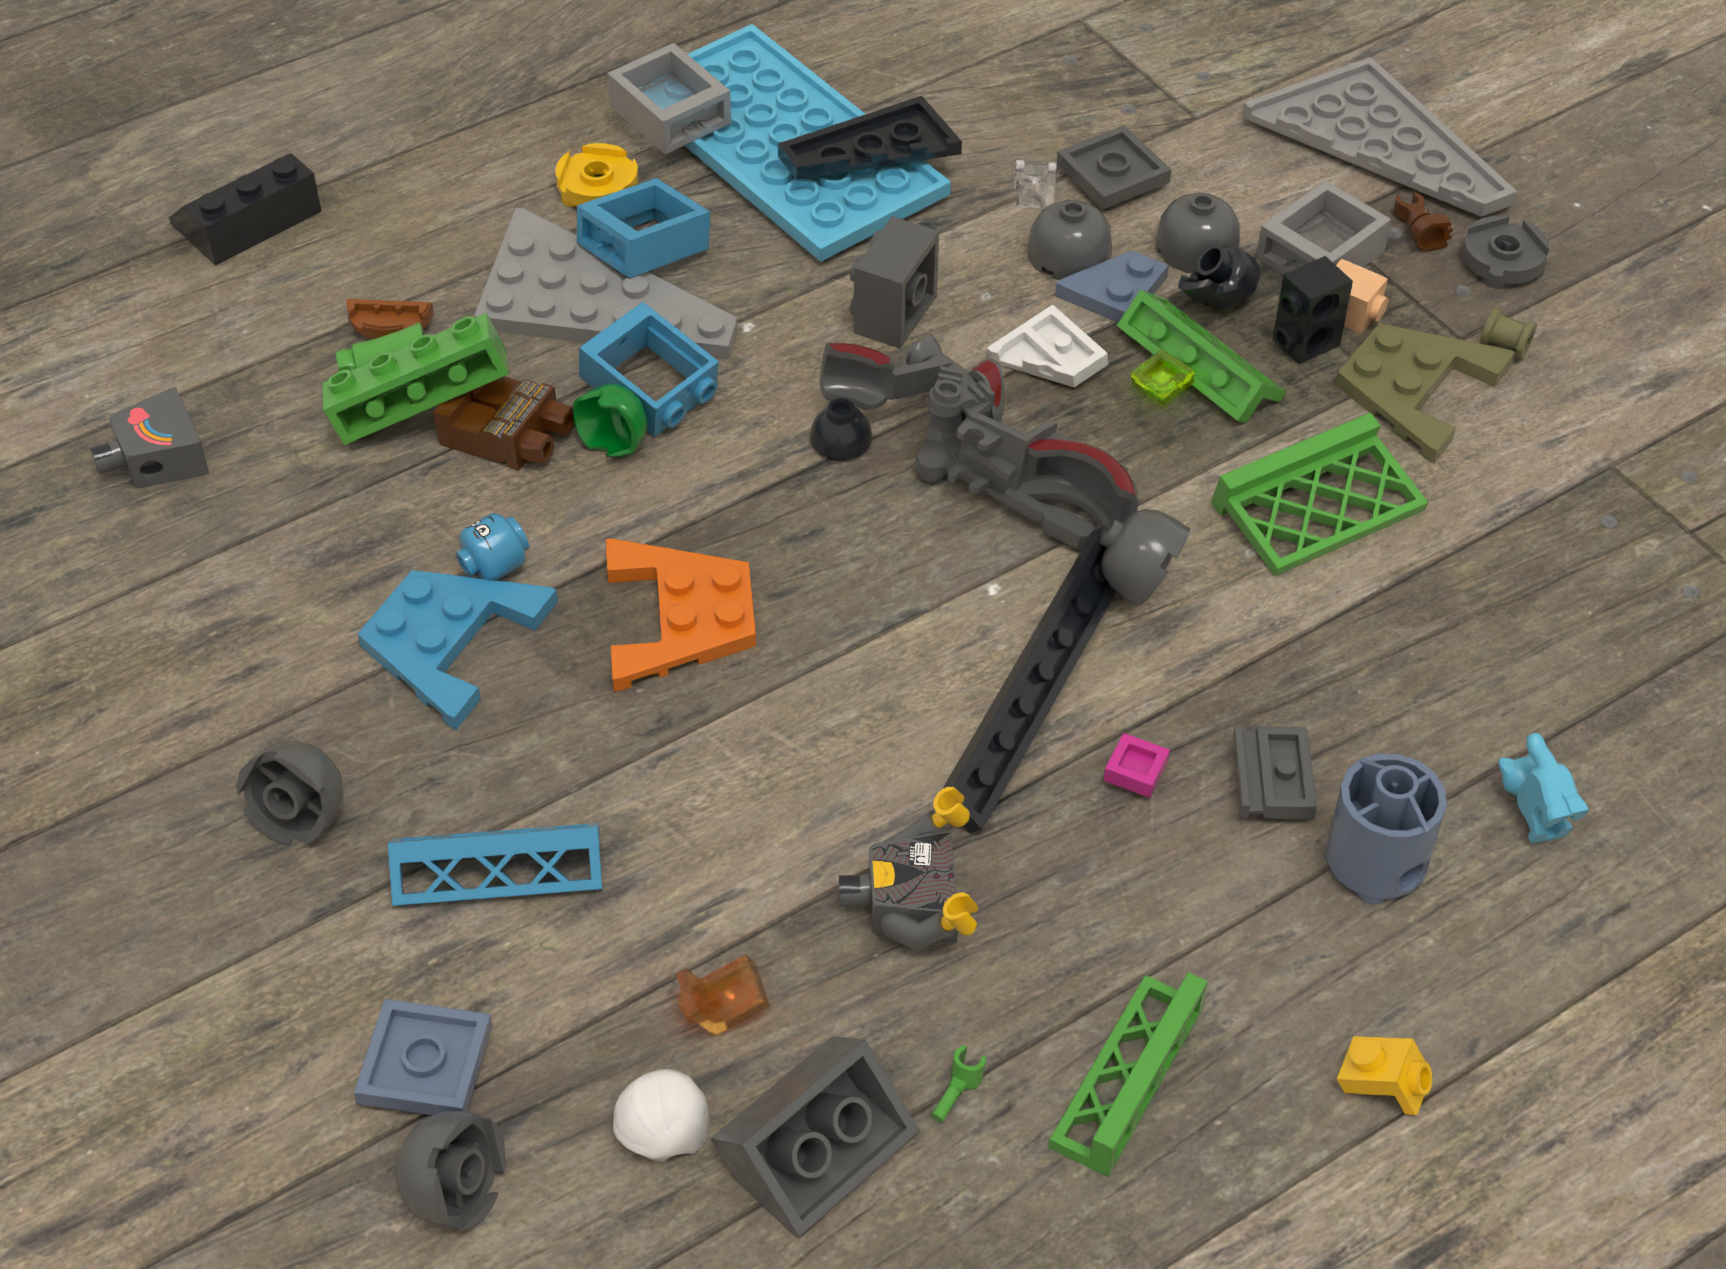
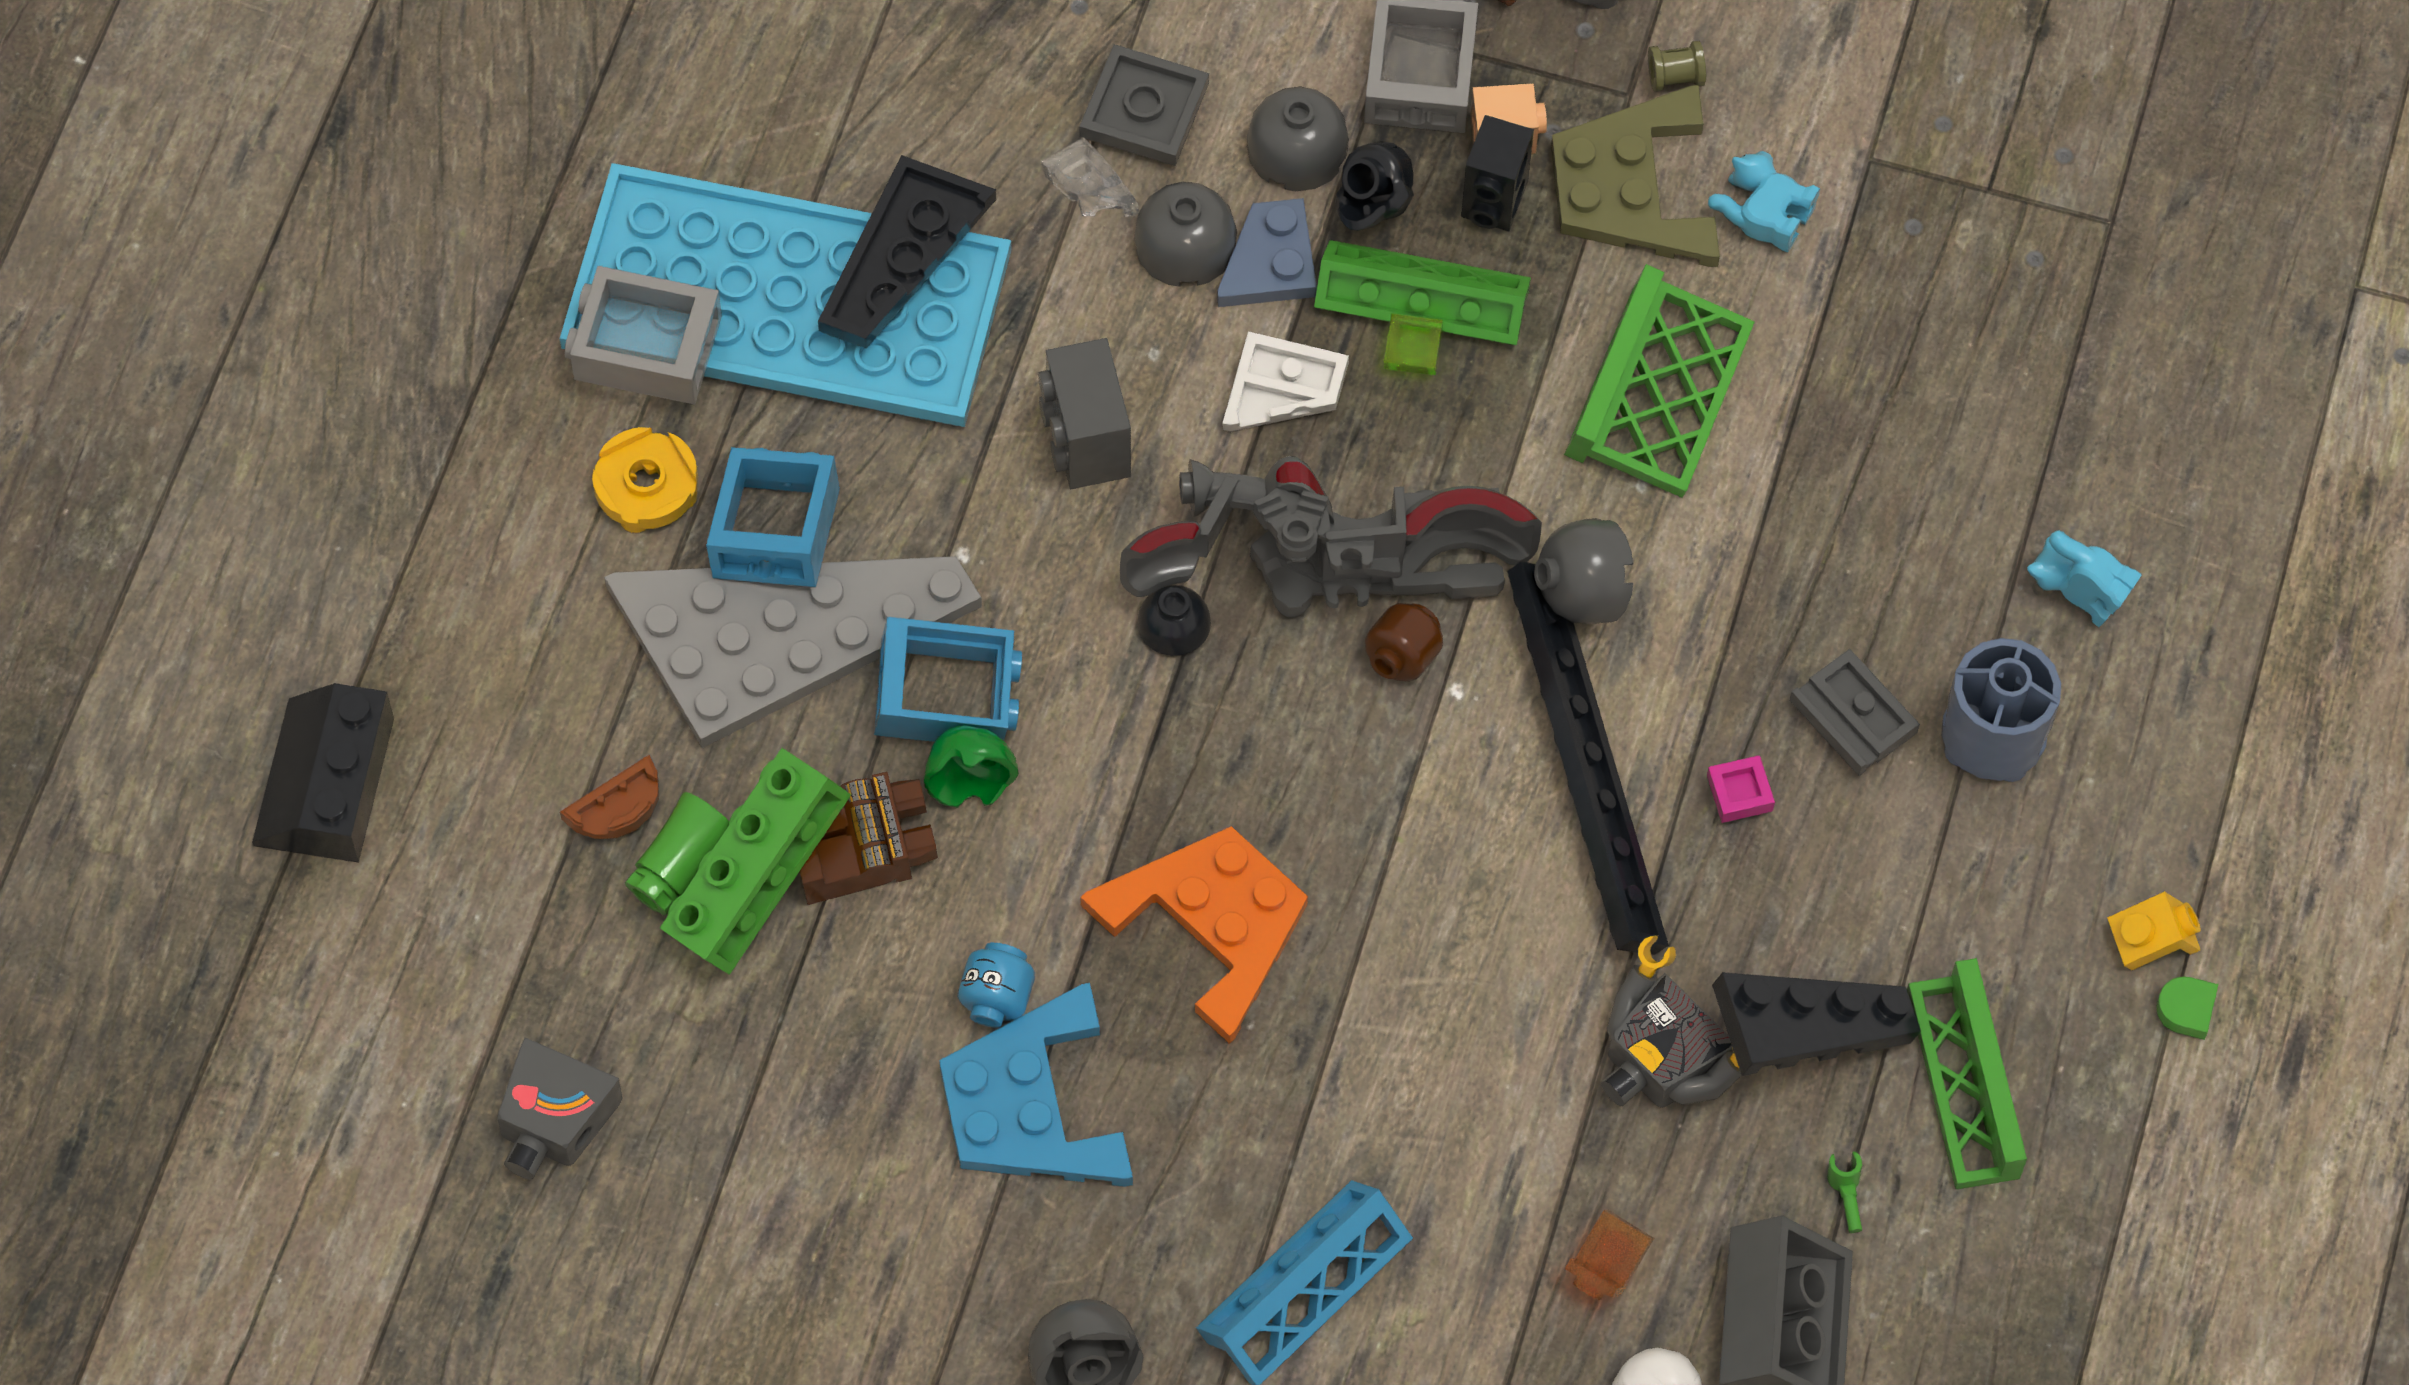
camera: 40 degrees left, 15 degrees up
(979, 529) = (1405, 640): none -> reddish brown head
(1014, 915) = (1799, 1018): none -> black wing
(1367, 1146) = (2187, 1006): none -> bright green tile
(1504, 440) = (1771, 202): none -> medium azure animal

